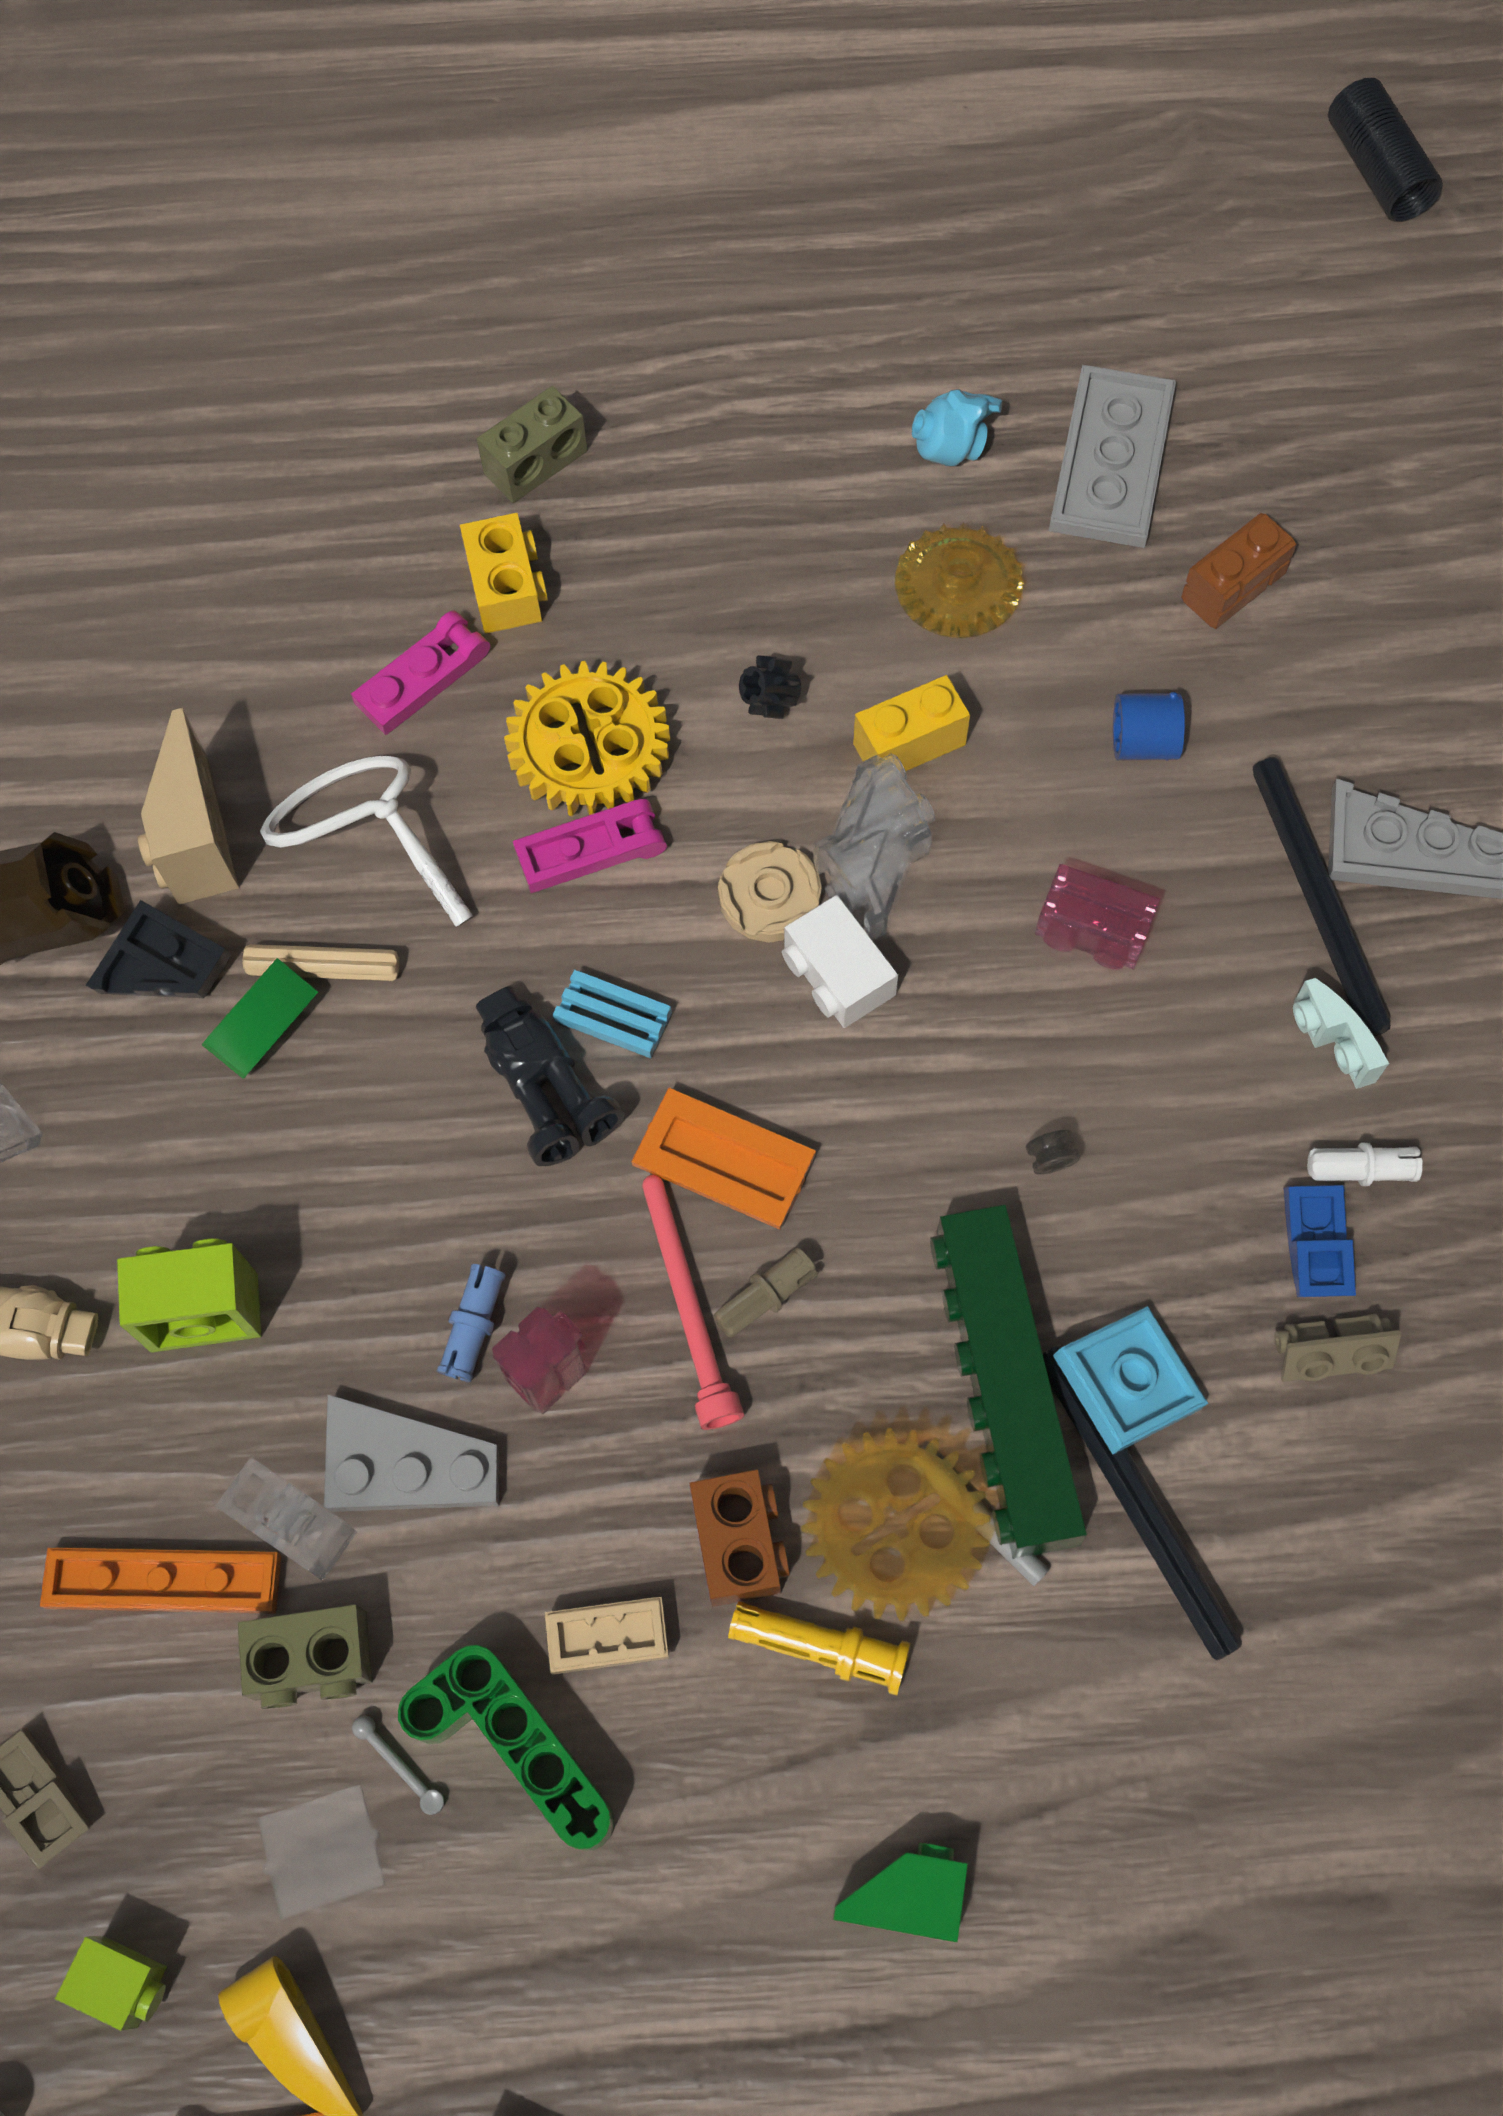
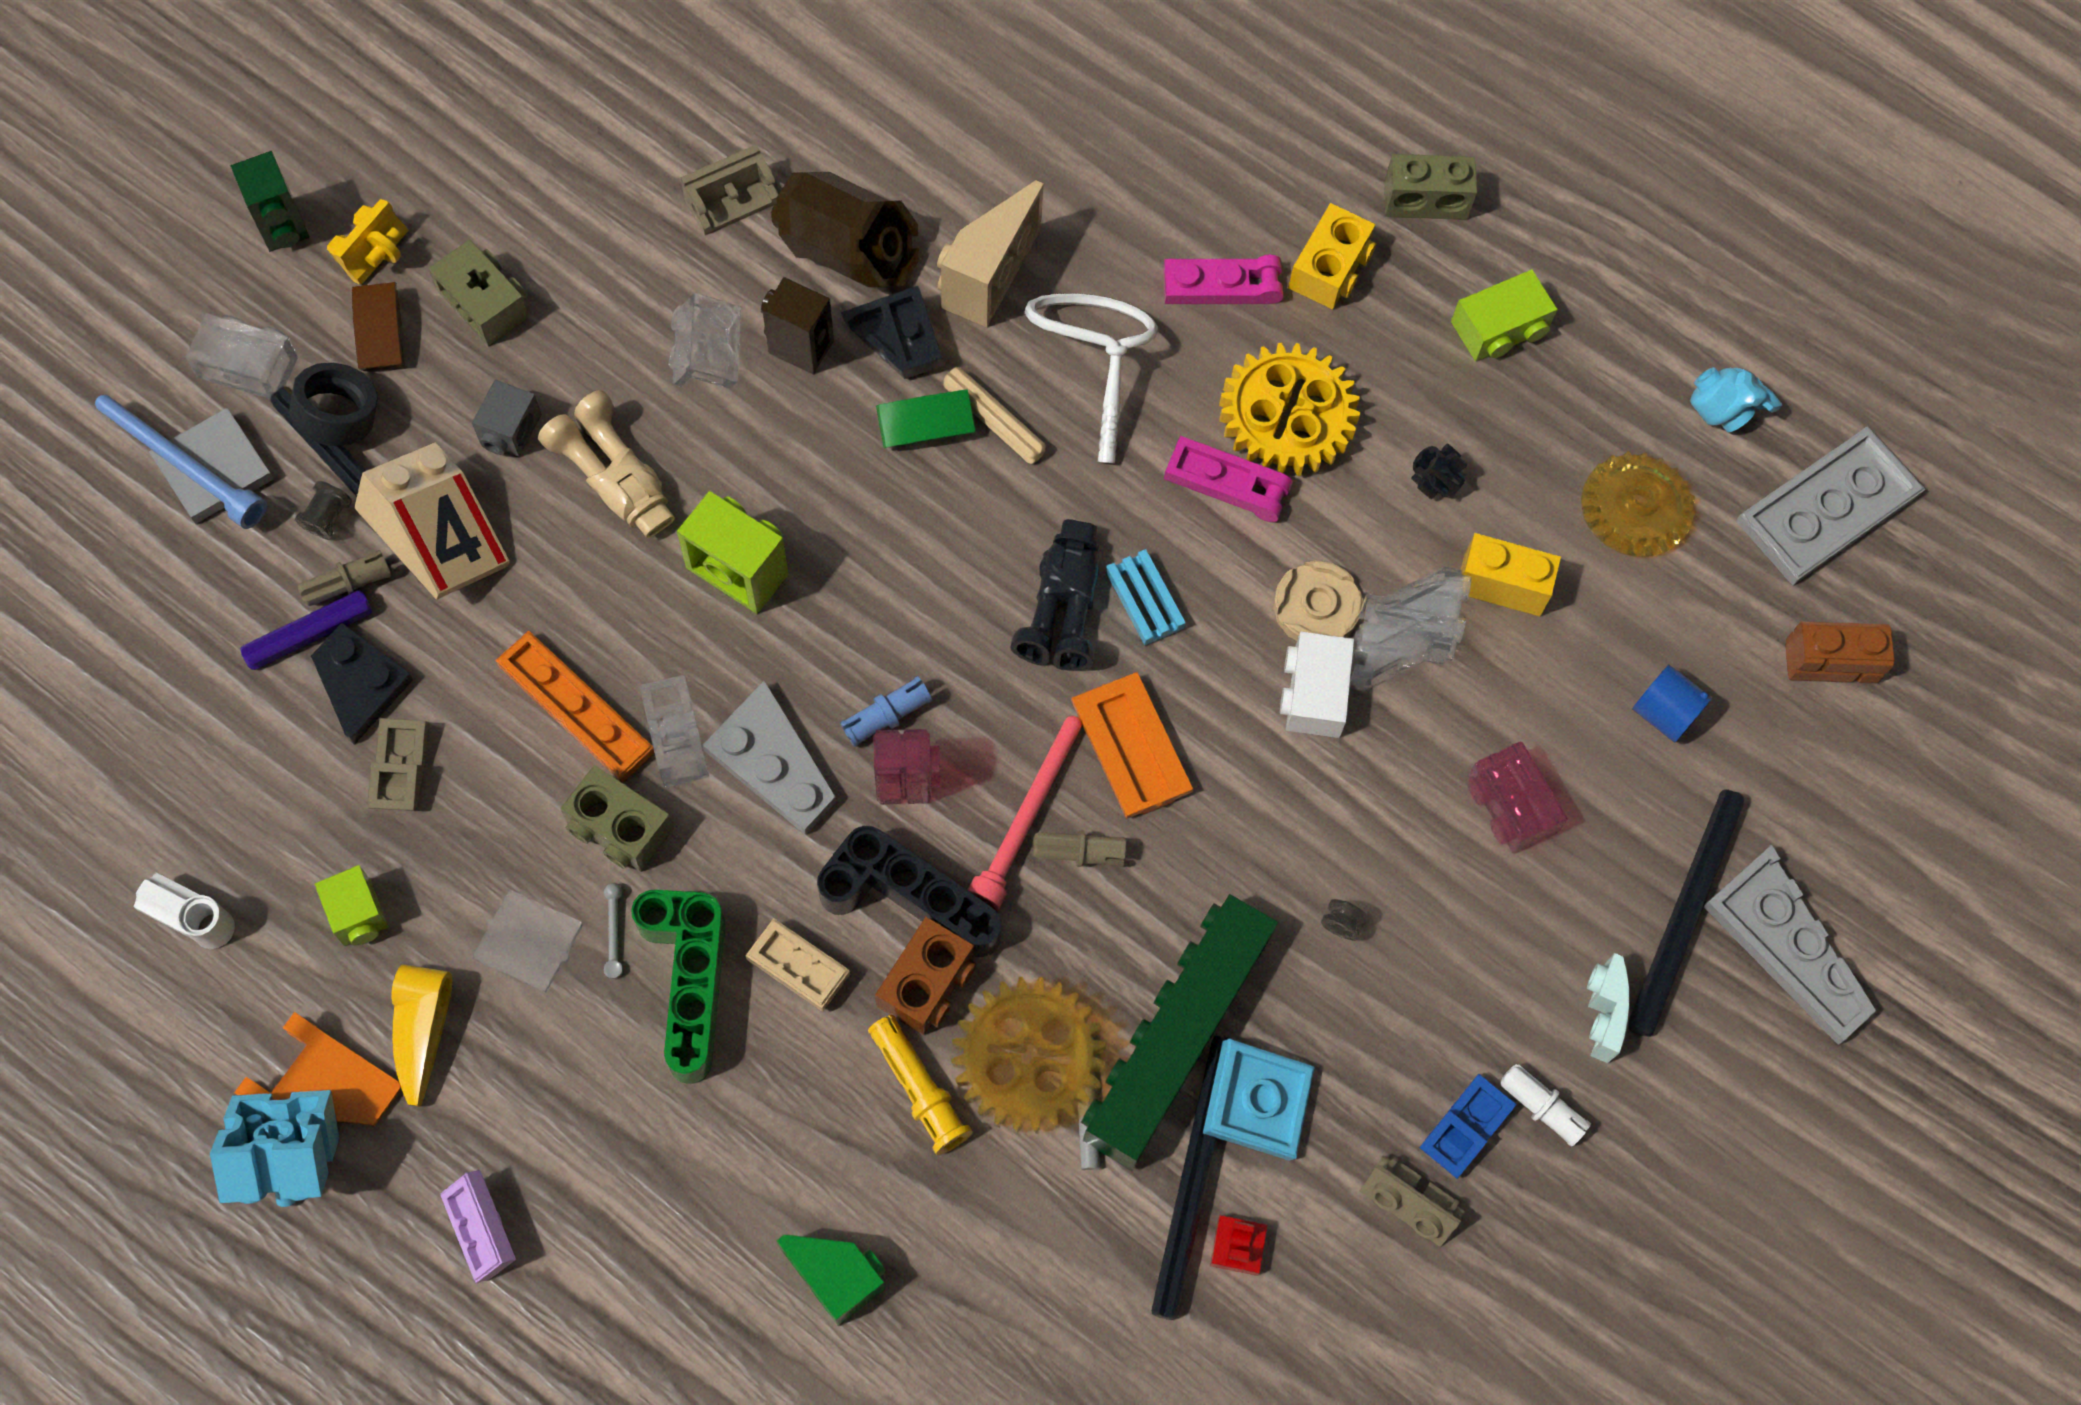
camera: 35 degrees right, 0 degrees up
(55, 1029) = (797, 324): none -> dark brown brick
(660, 1475) = (913, 898): none -> black beam
(700, 507) = (1504, 316): none -> lime brick
(1231, 1526) = (1238, 1245): none -> red tile

